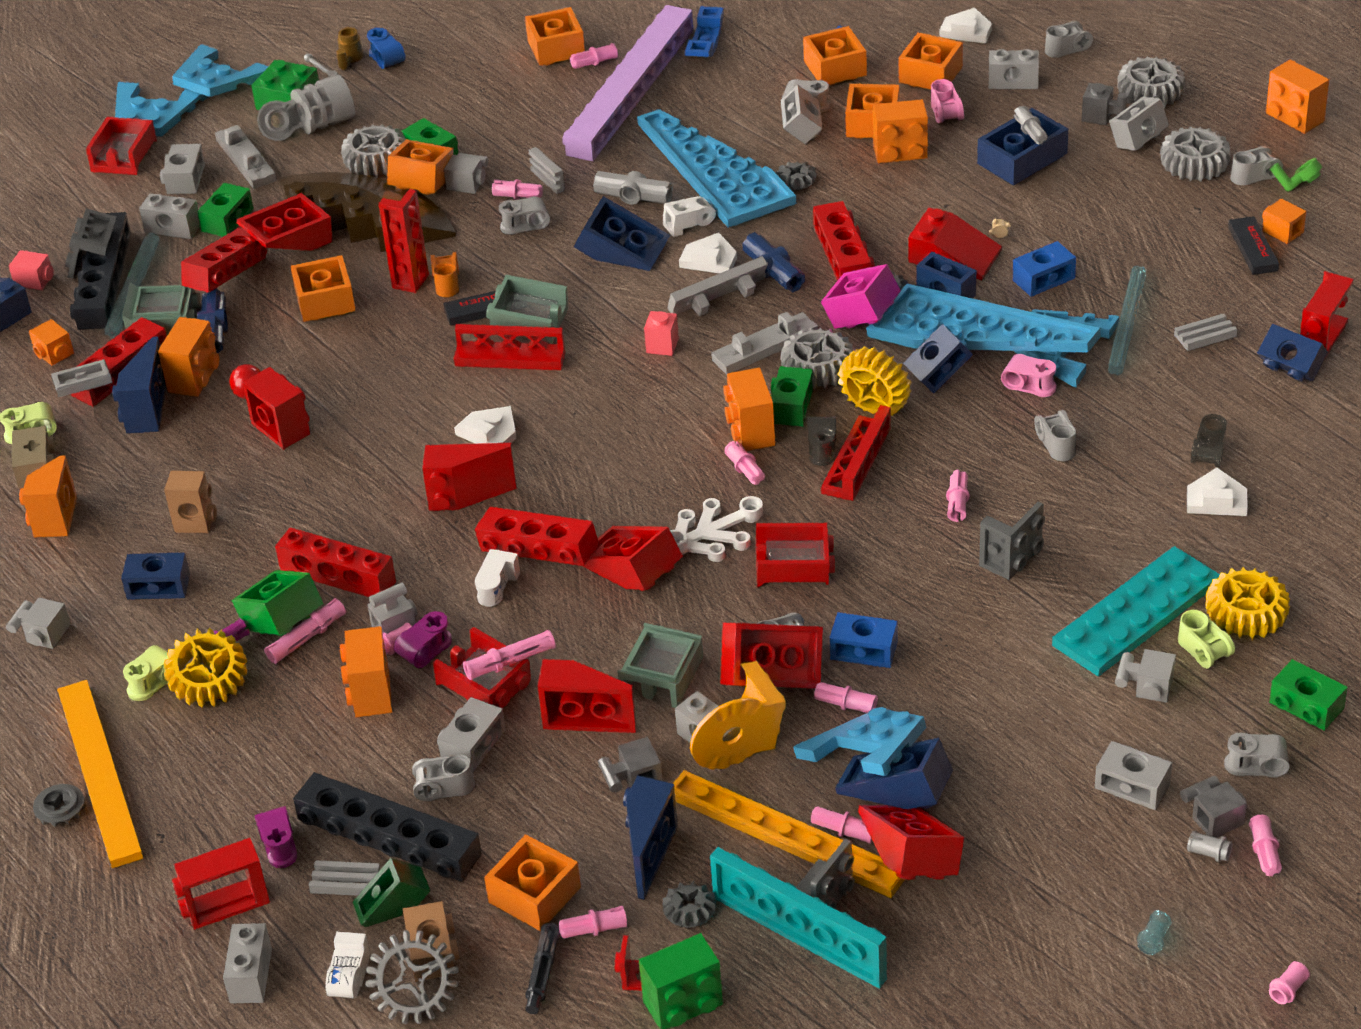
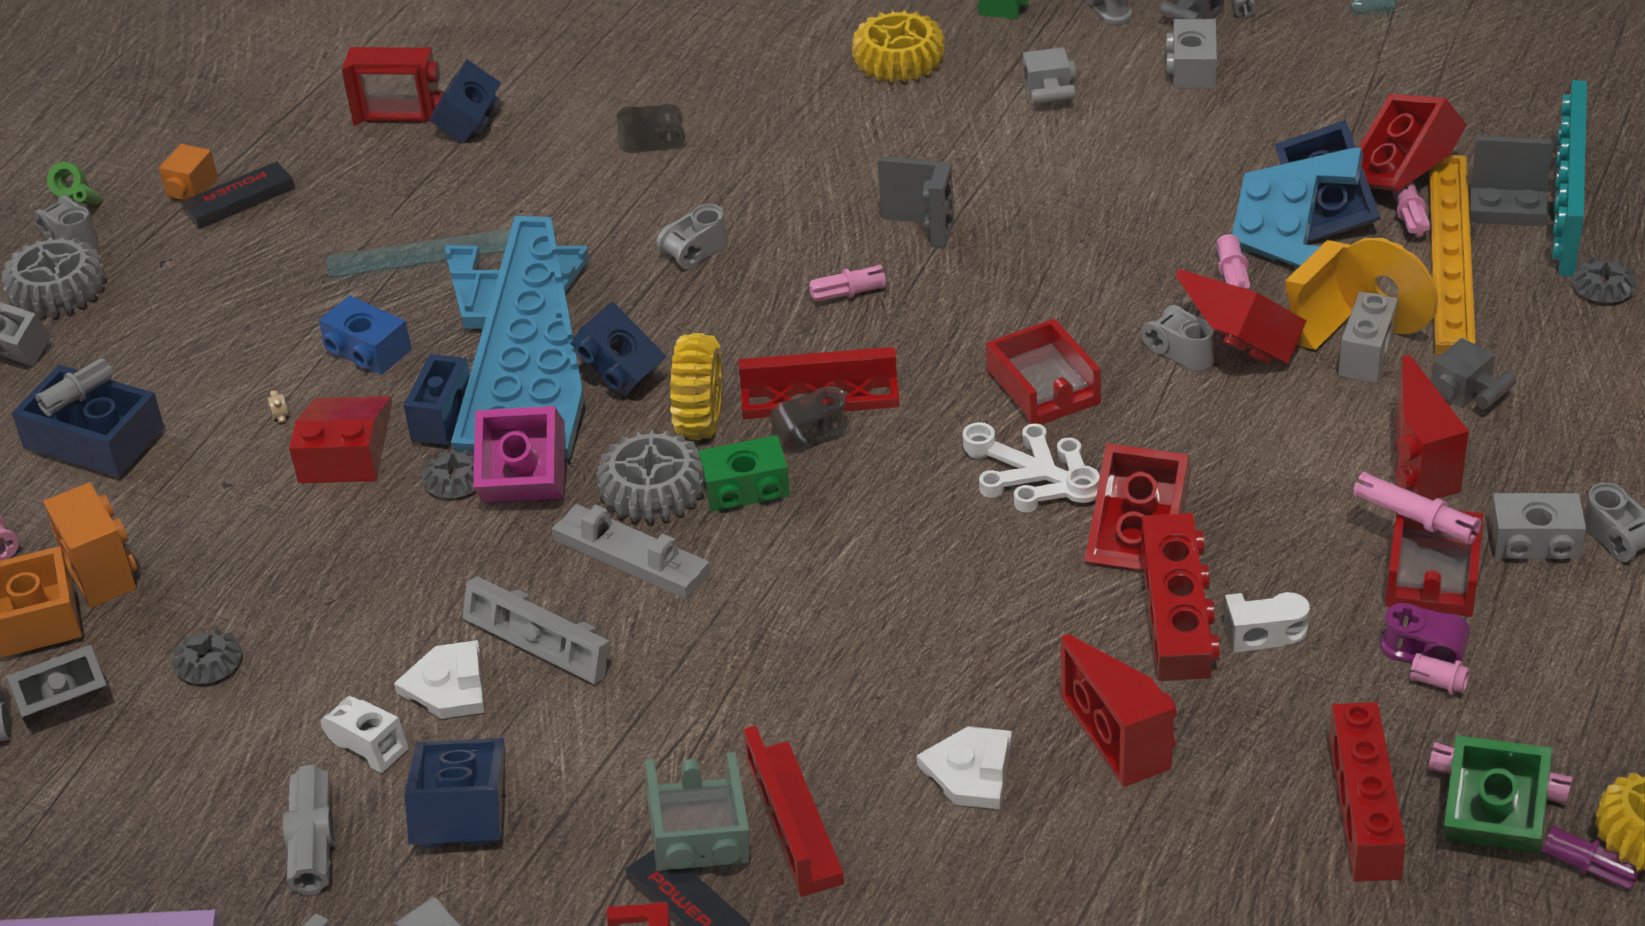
camera: 115 degrees left, 0 degrees up
(366, 672) = (1538, 641): orange brick -> none
(391, 609) = (1409, 684): light grey brick -> none
(651, 827) = (1566, 309): dark blue slope -> none
(661, 333) = (677, 645): coral brick -> none
(663, 660) = (1300, 415): sand green window -> none
(715, 171) = (241, 728): dark azure wing -> none
(744, 462) = (895, 476): bright pink axle -> none
(749, 409) = (812, 477): orange brick -> none
(778, 262) = (444, 595): dark blue piece -> none
(840, 238) = (379, 537): red brick -> none
(863, 640) = (1140, 274): blue brick -> none
(1029, 373) = (592, 284): bright pink piece -> none
(1135, 611) = (949, 119): teal plate -> none
(1203, 638) = (972, 61): yellowish green piece -> none
(1205, 332) = (439, 185): light grey tile -> none
(1217, 495) = (731, 111): white plate -> none

